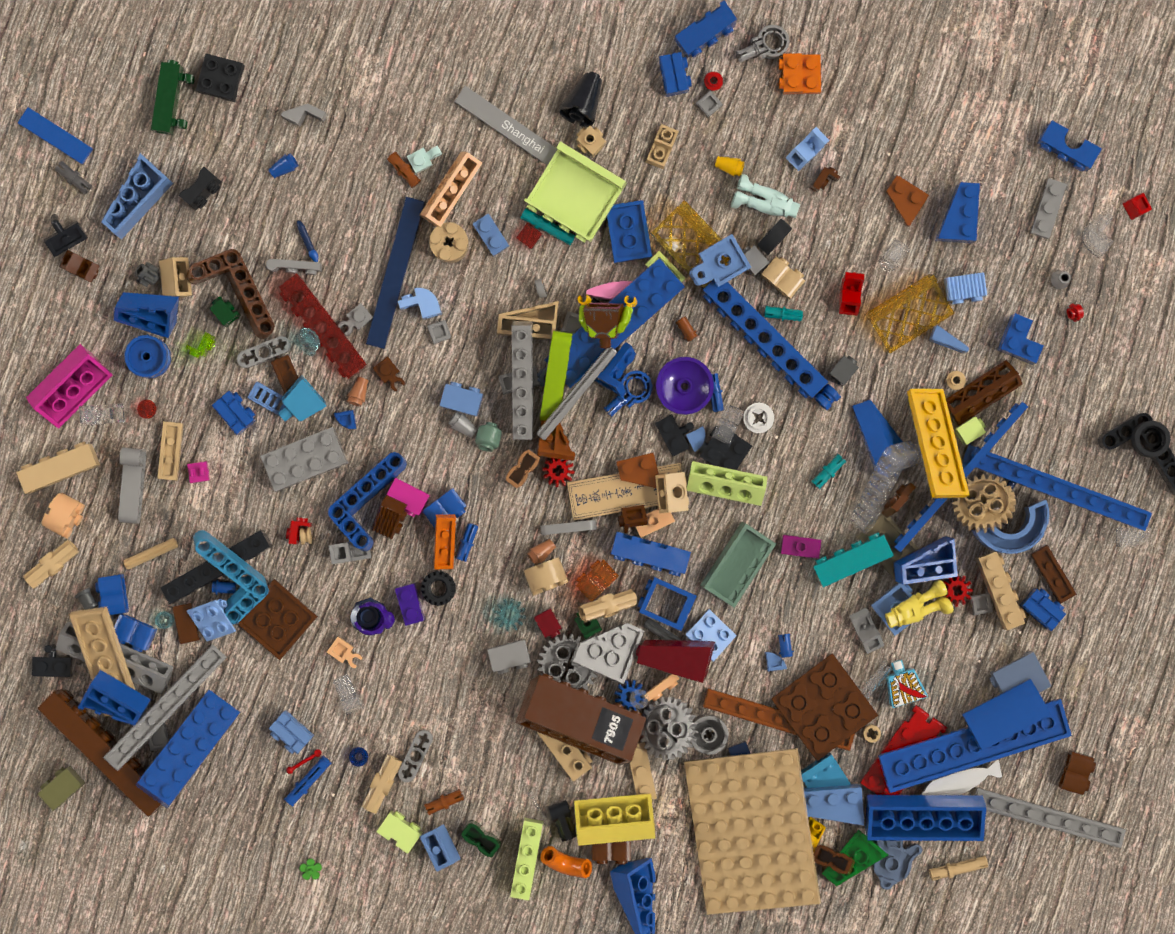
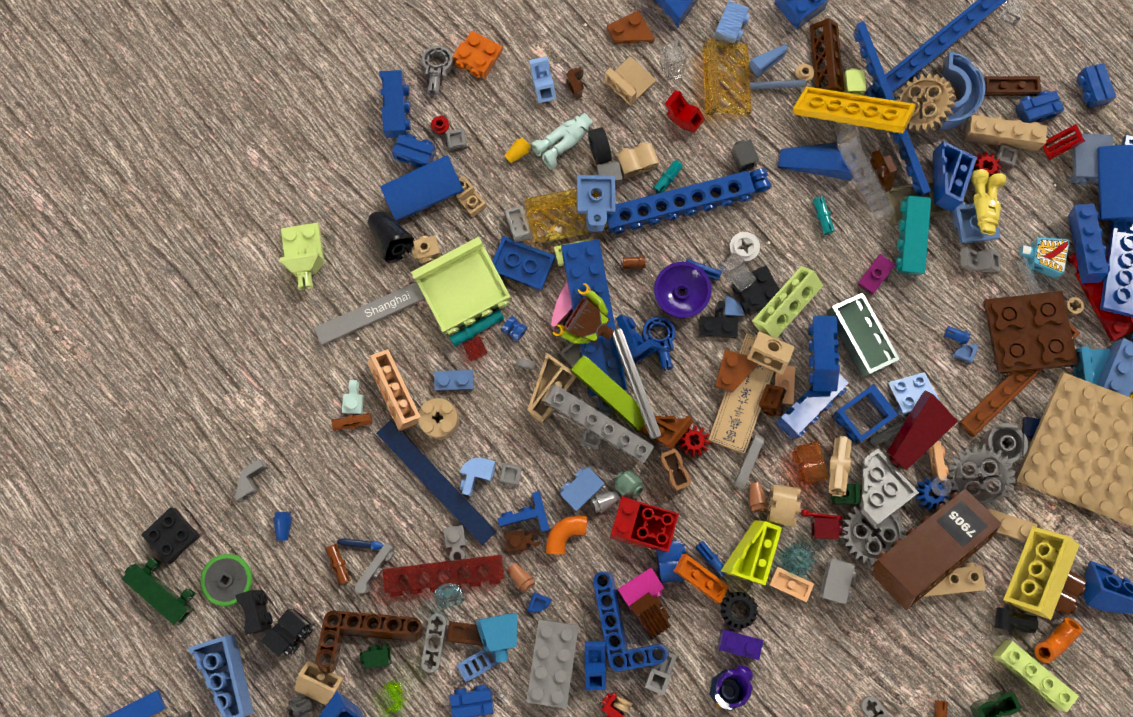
camera: 55 degrees left, 10 degrees down
(200, 227) = (287, 632): none -> black brick
(215, 135) = (214, 574): none -> dark grey wheel
(279, 233) = (337, 564): none -> dark orange pin
(322, 495) = (595, 665): none -> blue brick
(414, 366) = (526, 514): none -> blue bracket
(416, 404) = (562, 531): none -> orange cylinder
(461, 469) = (644, 525): none -> red slope
(485, 620) = (791, 584): none -> light nougat plate
(491, 574) = (754, 553): none -> neon yellow wedge
(525, 33) = (302, 252): none -> yellowish green plate
(552, 598) = (805, 513): none -> red hinge
(565, 259) = (514, 328): none -> blue wheel
(643, 103) = (422, 188): none -> blue slope
(662, 207) = (518, 224): none -> light grey plate
(697, 538) = (824, 353): none -> blue wedge
(856, 227) = (629, 80): none -> tan bracket
(930, 363) = (777, 84): none -> sand blue bar
(933, 715) = (1088, 243): none -> blue brick
(1031, 654) = (1067, 146): none -> red tile
(1095, 649) = (1096, 85): none -> blue brick

